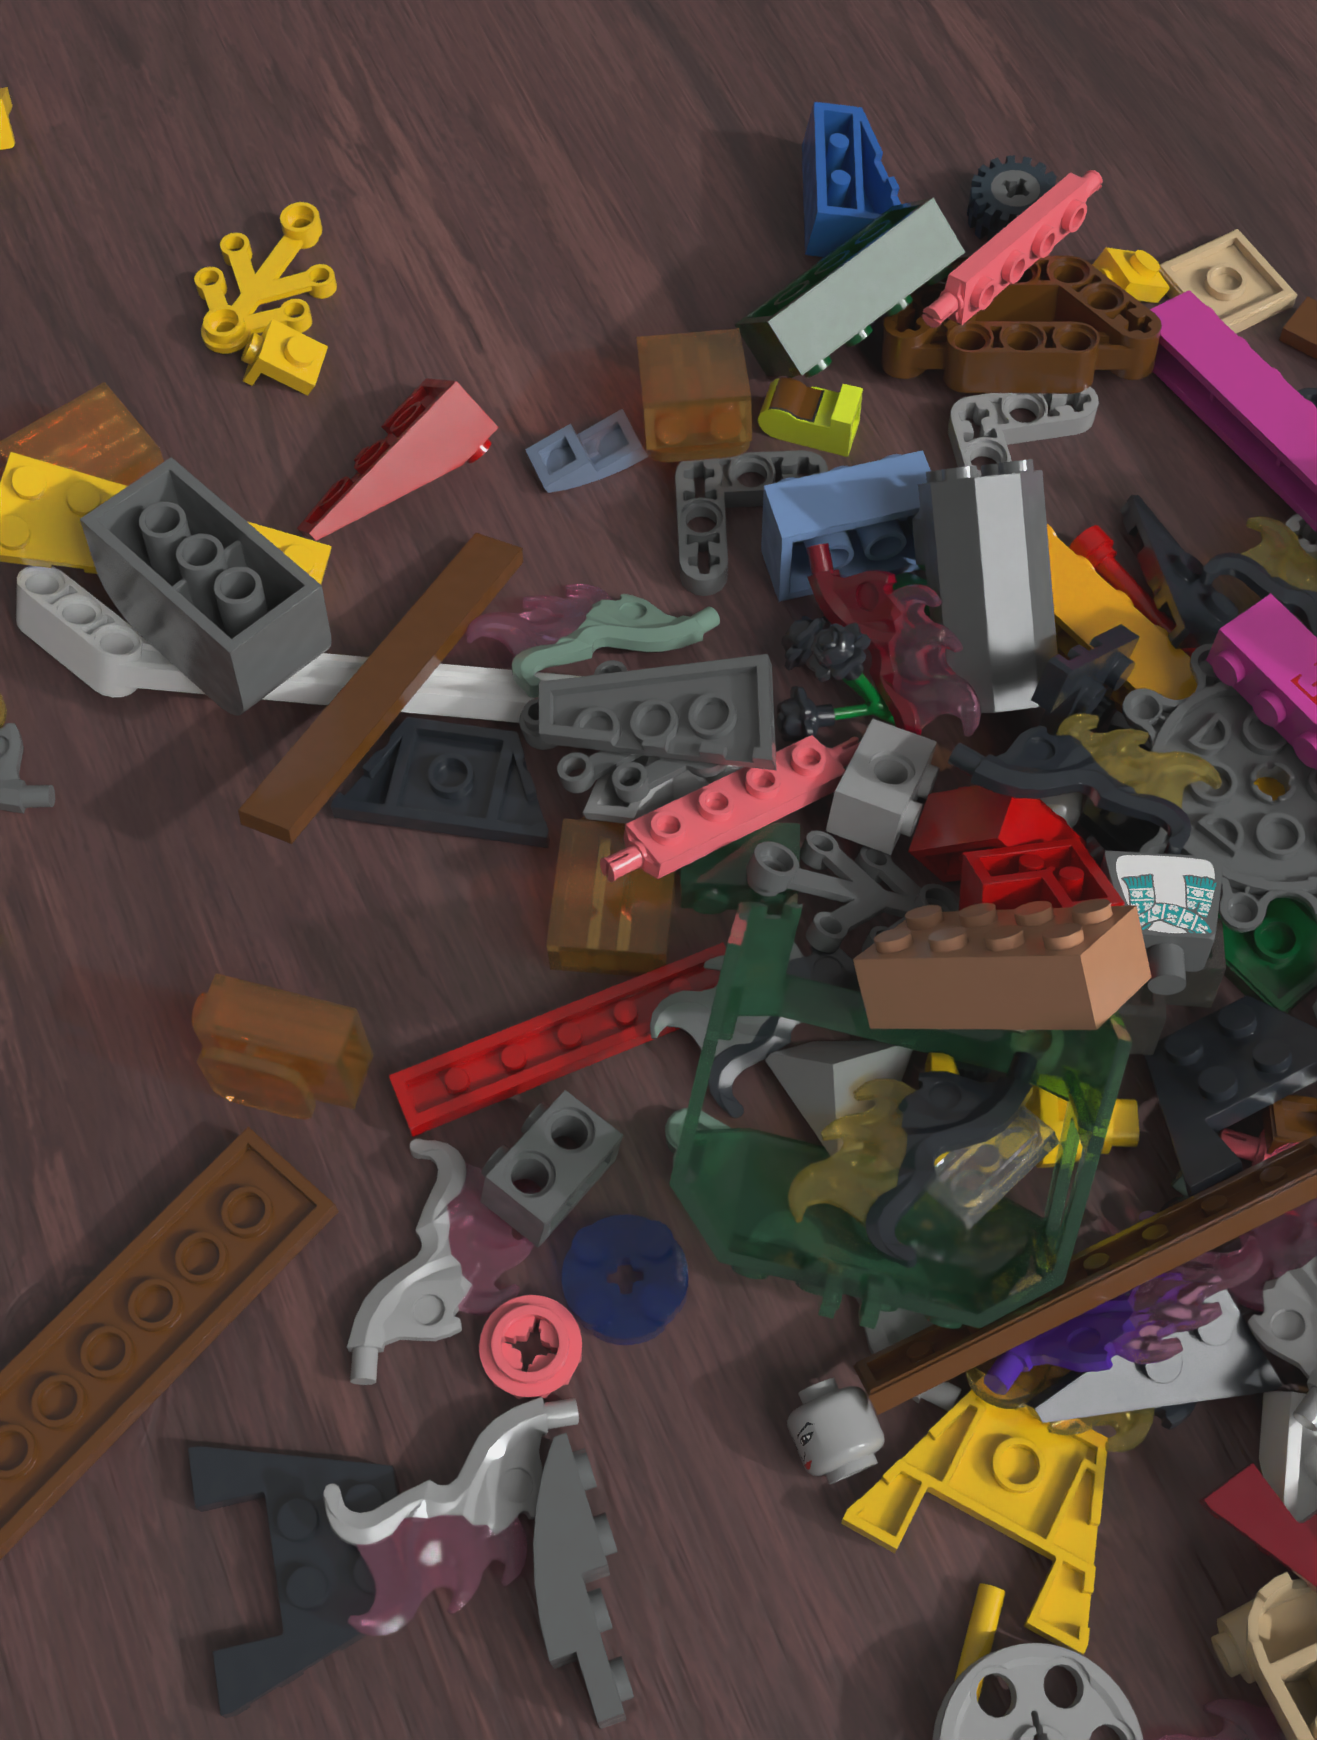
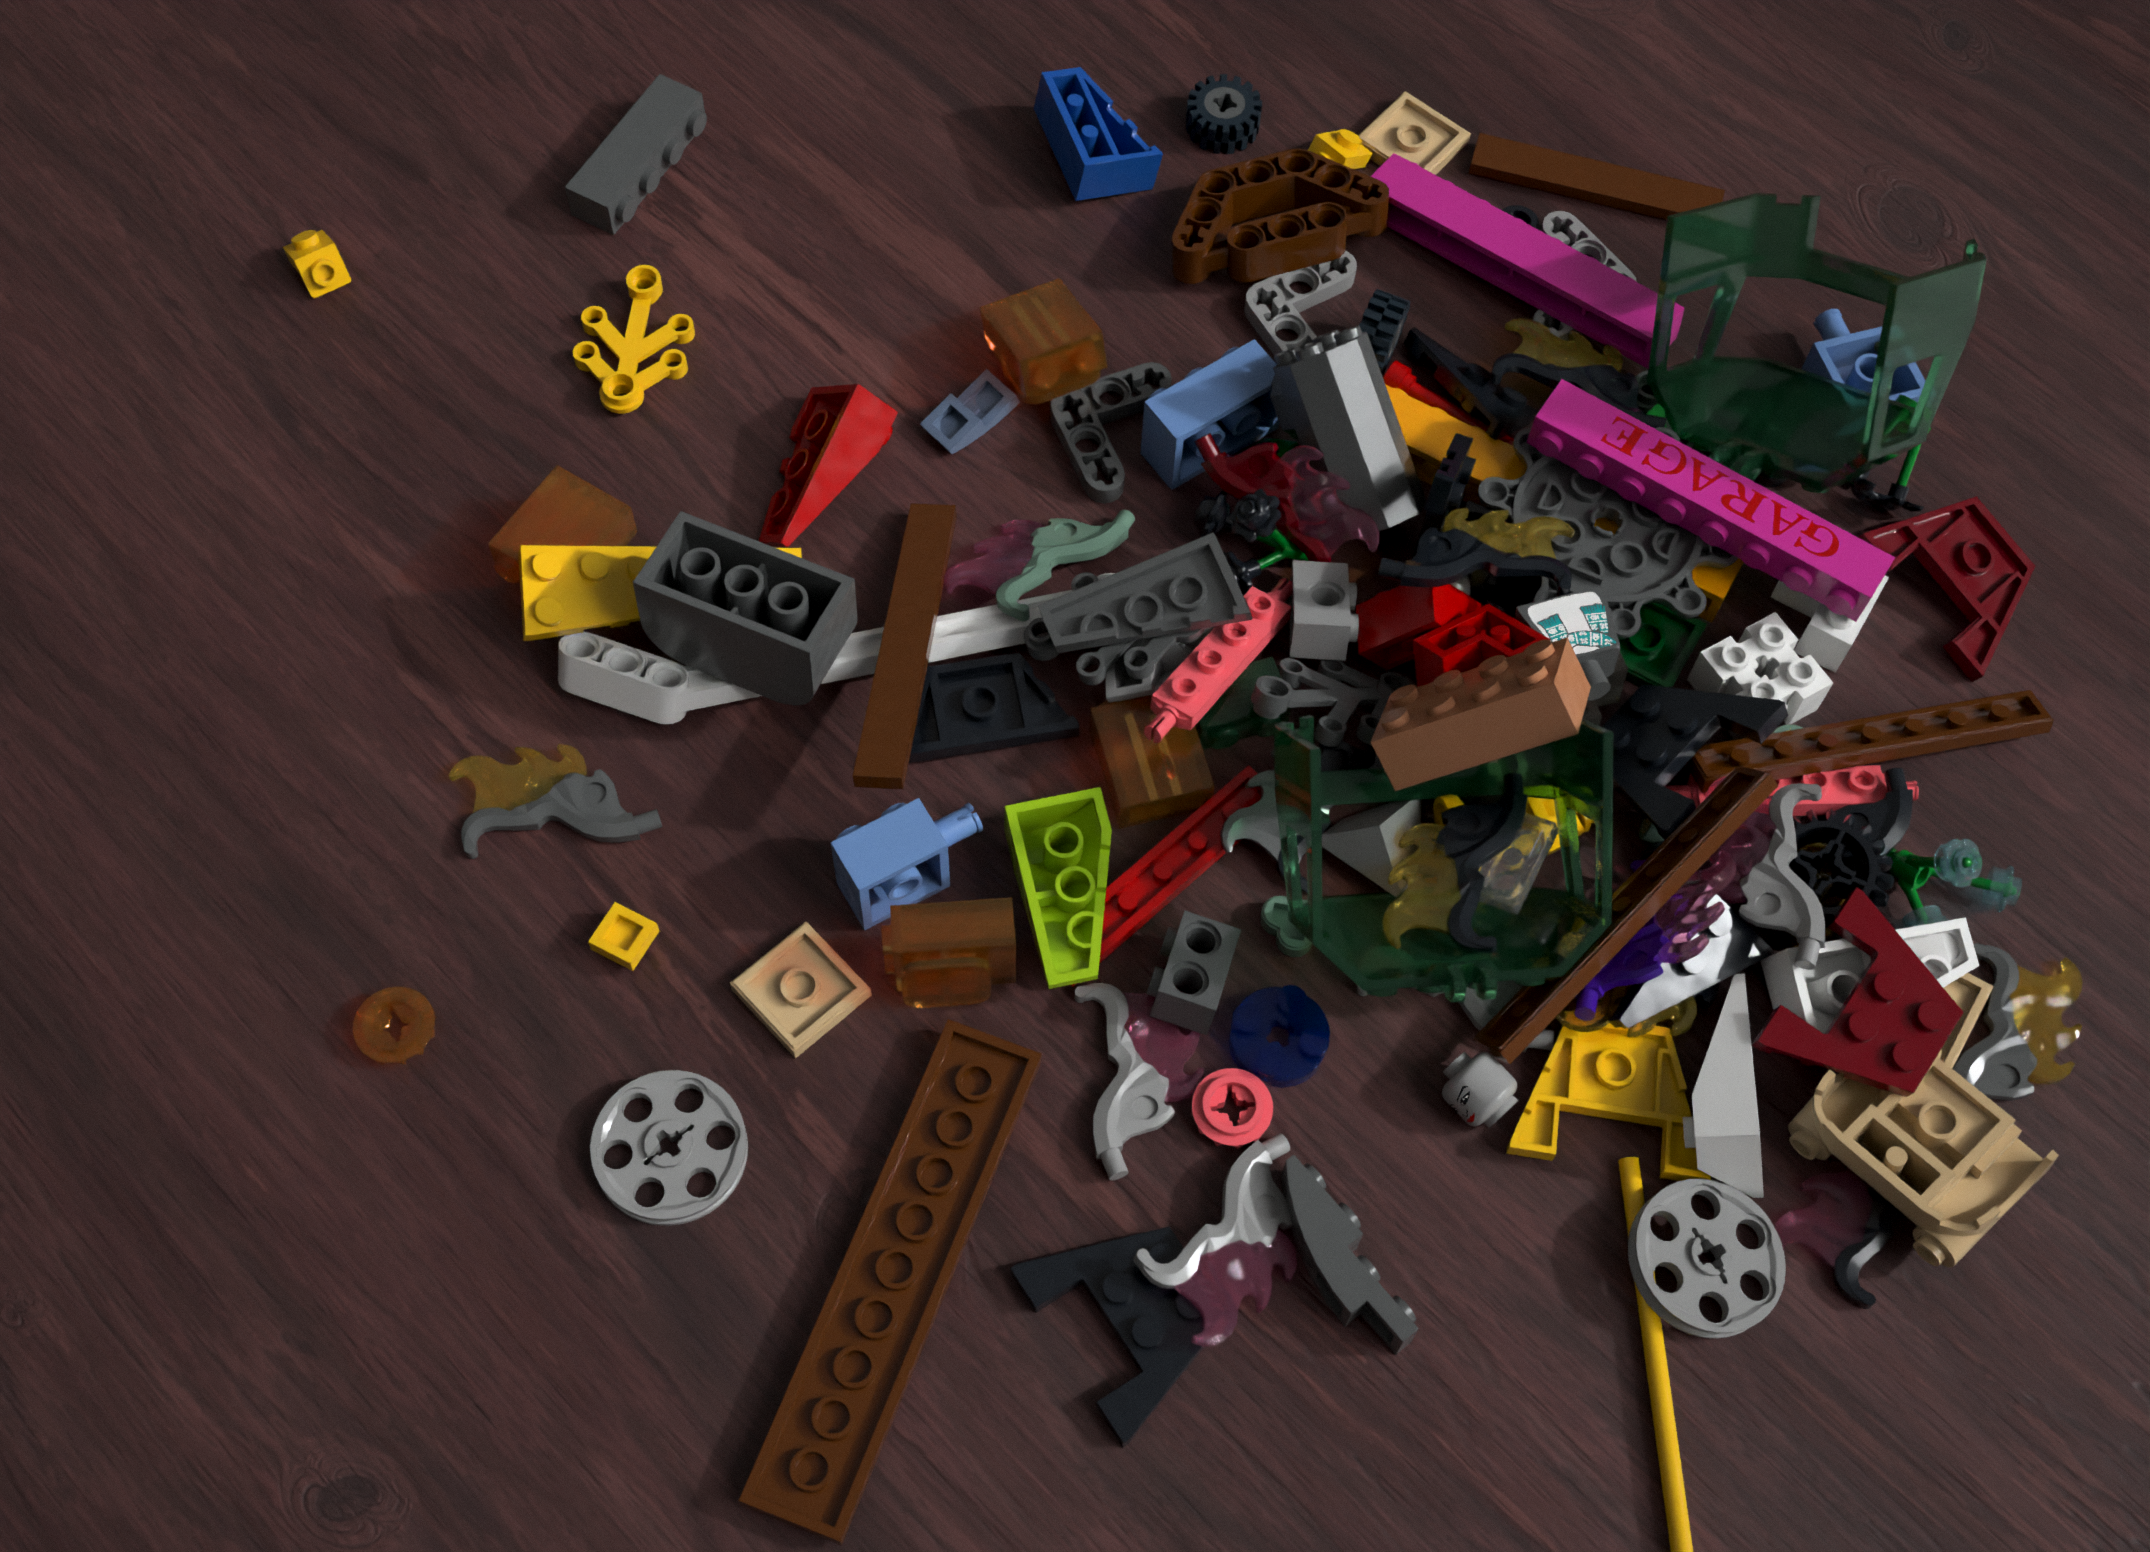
camera: 25 degrees left, 0 degrees up
(112, 1037) = (800, 989): none -> tan tile
(269, 921) = (898, 858): none -> medium blue brick
(284, 357) = (683, 401): yellow bracket -> none
(354, 88) = (636, 154): none -> dark grey brick
(441, 1000) = (1062, 874): none -> lime wedge
(812, 415) = (1140, 332): neon yellow leg -> none
(851, 290) = (1137, 222): brick -> none
(1014, 250) = (1252, 158): coral plate -> none
(1088, 485) = (1384, 324): none -> black wheel
(1125, 1583) = (1725, 1102): none -> white wedge

